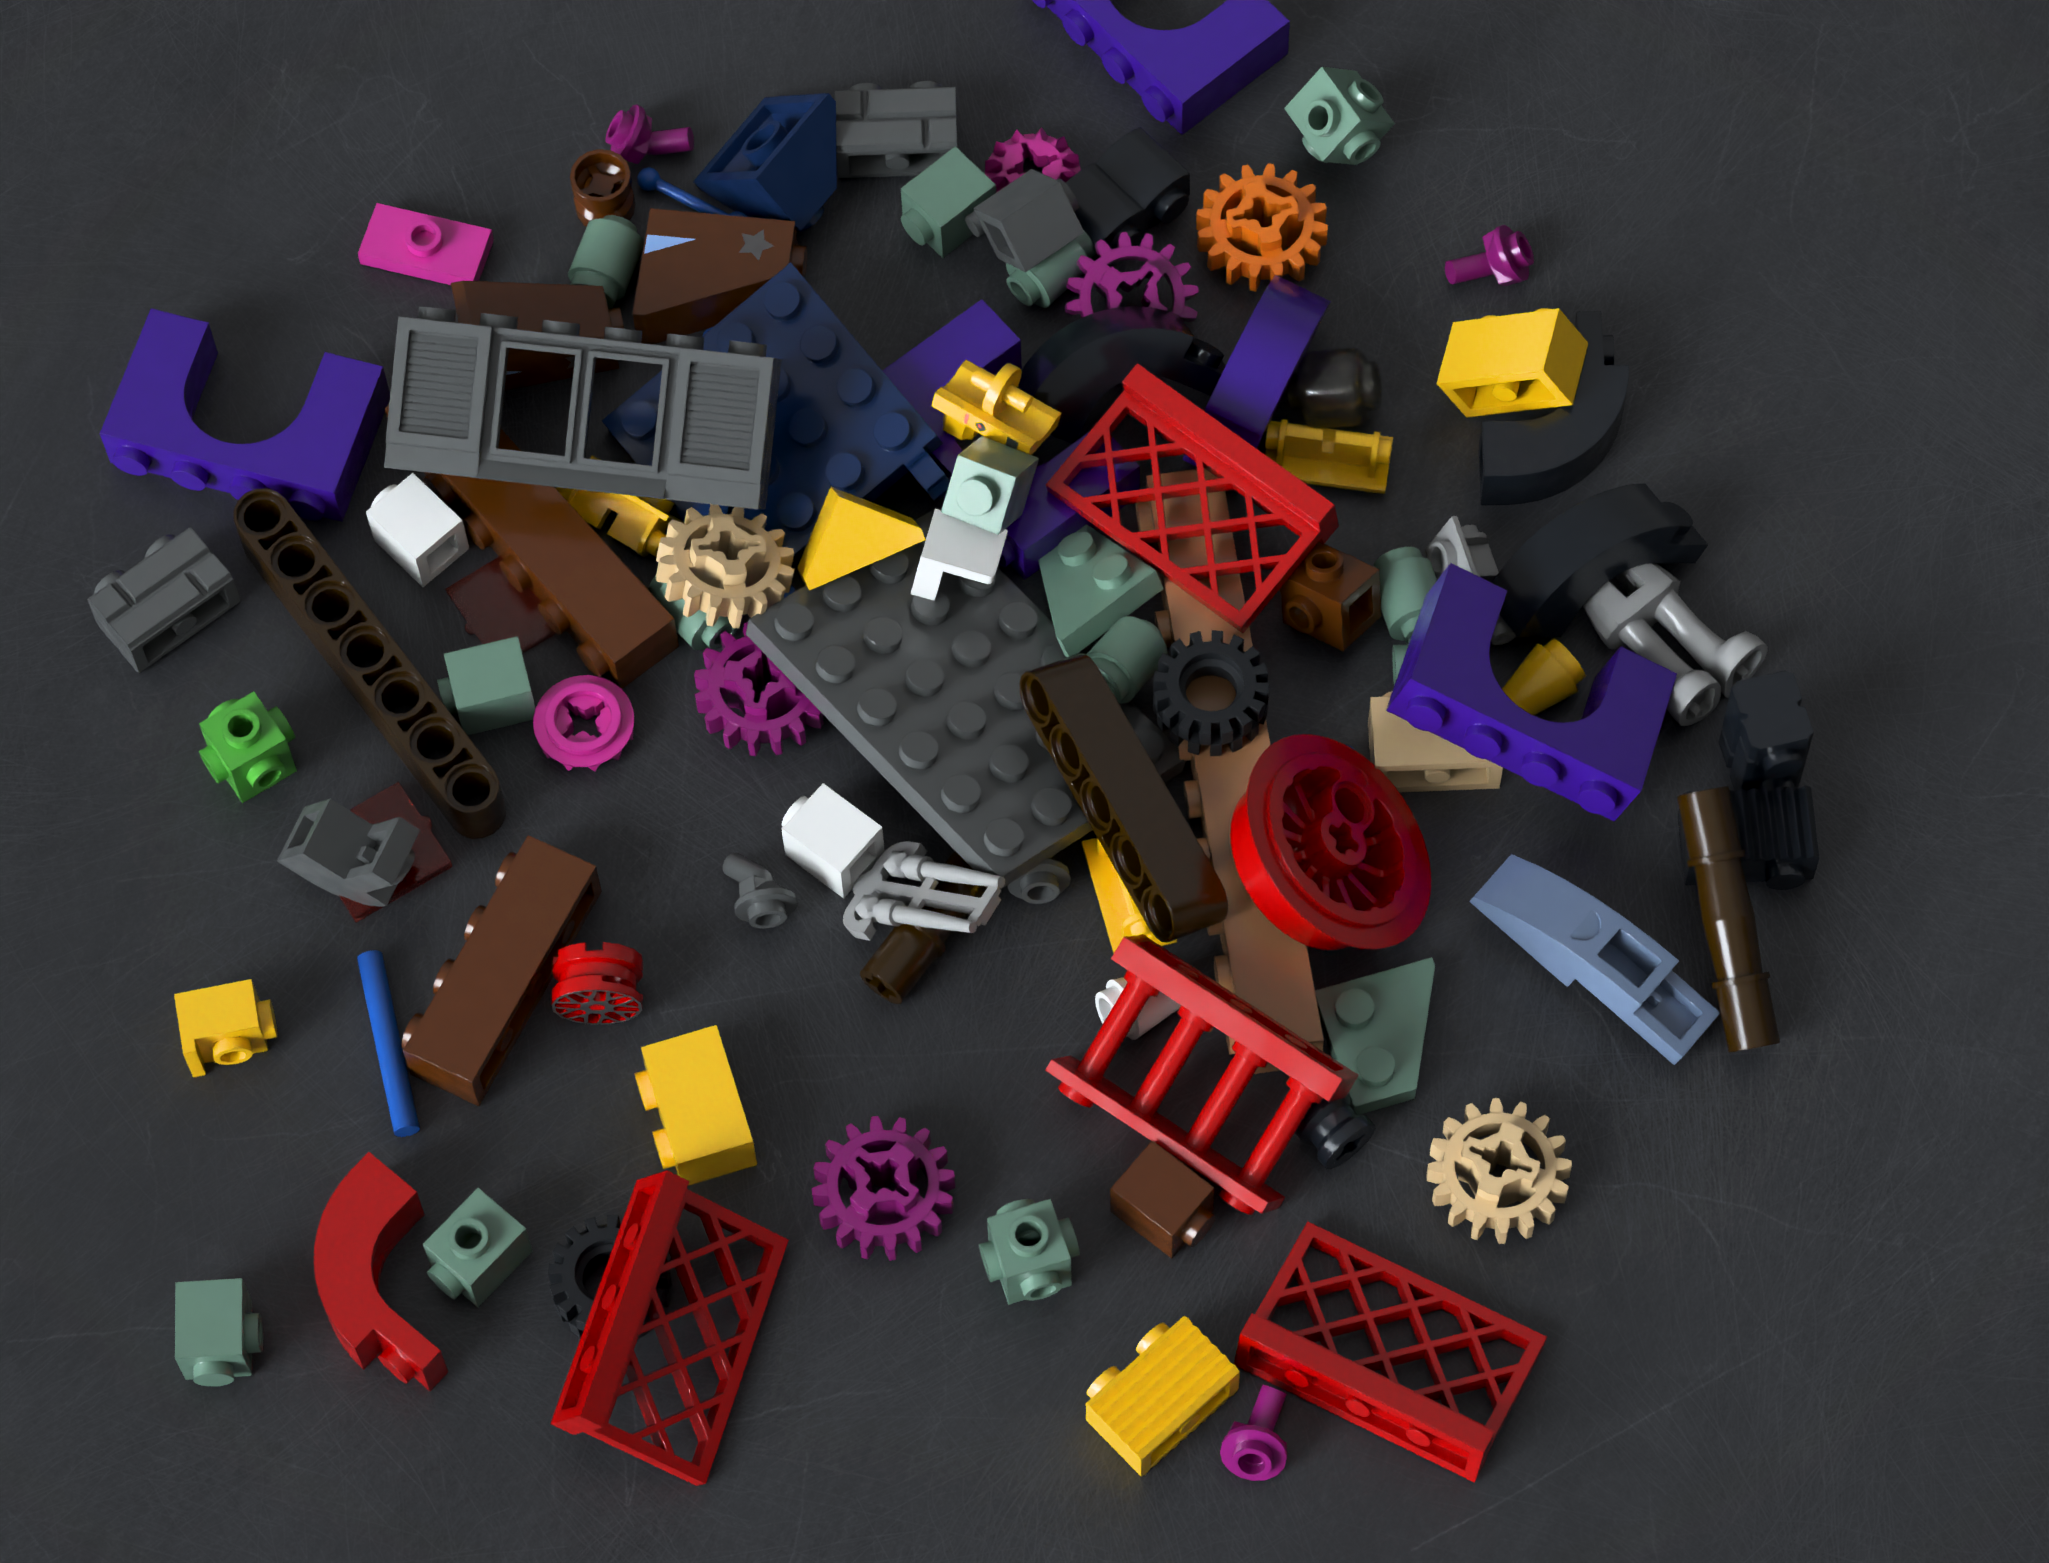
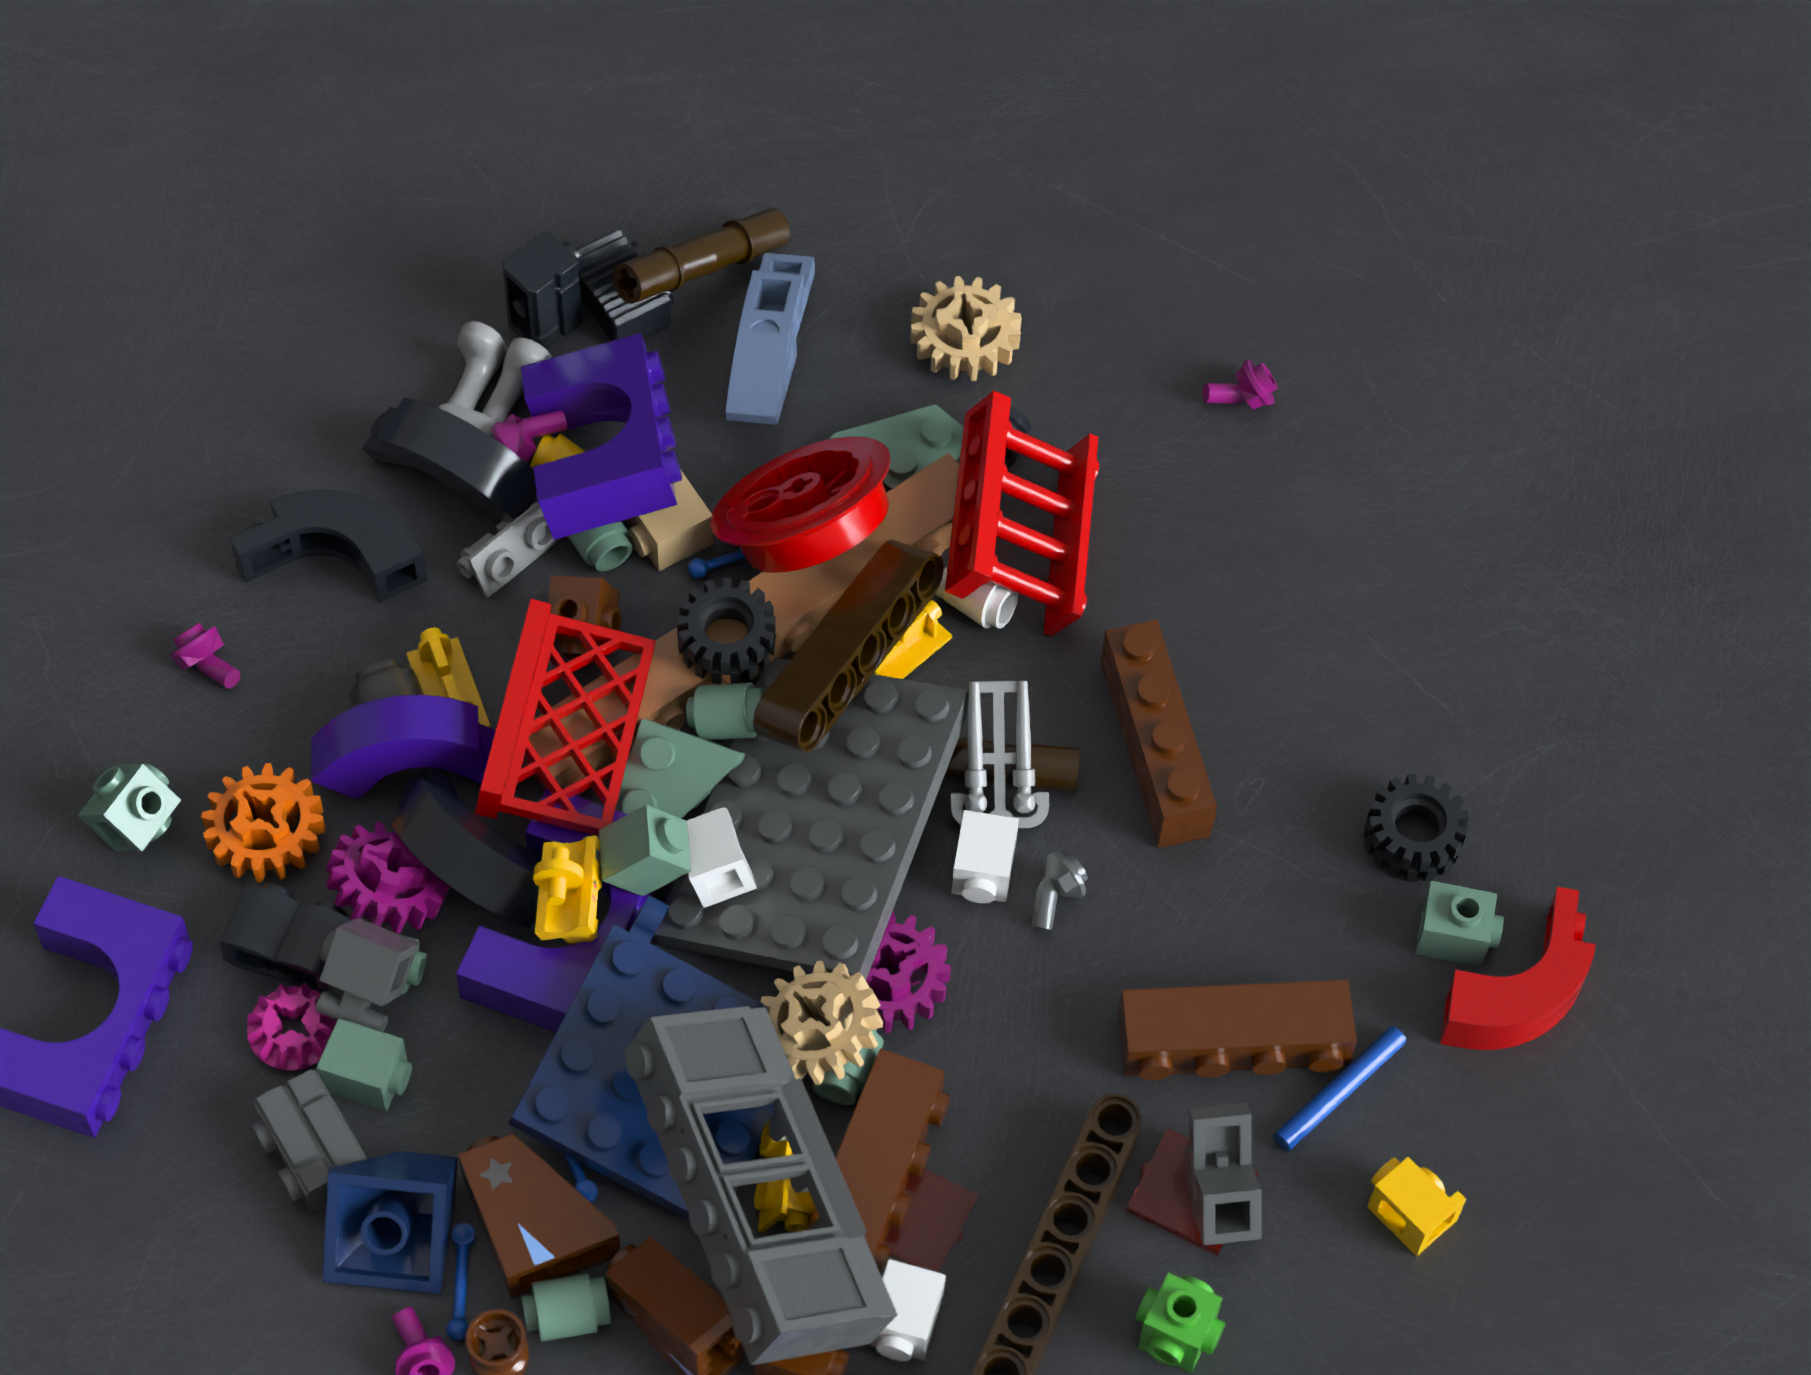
camera: 125 degrees left, 5 degrees down
(215, 1331) = (1640, 1065): sand green brick -> none
(487, 686) = (1011, 1173): sand green brick -> none
(584, 697) = (978, 1073): dark pink gear -> none
(597, 983) = (1207, 947): red wheel -> none
(619, 1314) = (1420, 779): red fence -> none
(698, 1106) = (1252, 837): yellow brick -> none
(851, 536) = (740, 942): yellow slope -> none
(868, 1076) = (1158, 734): none -> reddish brown brick
(880, 1159) = (1257, 685): magenta gear -> none
(1025, 1269) = (1216, 569): sand green brick -> none
(1160, 1393) = (1258, 449): yellow brick -> none
(1163, 1200) = (1121, 512): reddish brown brick -> none
(1377, 1400) = (1174, 338): red fence -> none
(1403, 587) = (533, 572): sand green brick -> none
(1512, 363) = (307, 577): yellow brick -> none
(1586, 631) = (518, 433): none -> magenta plate

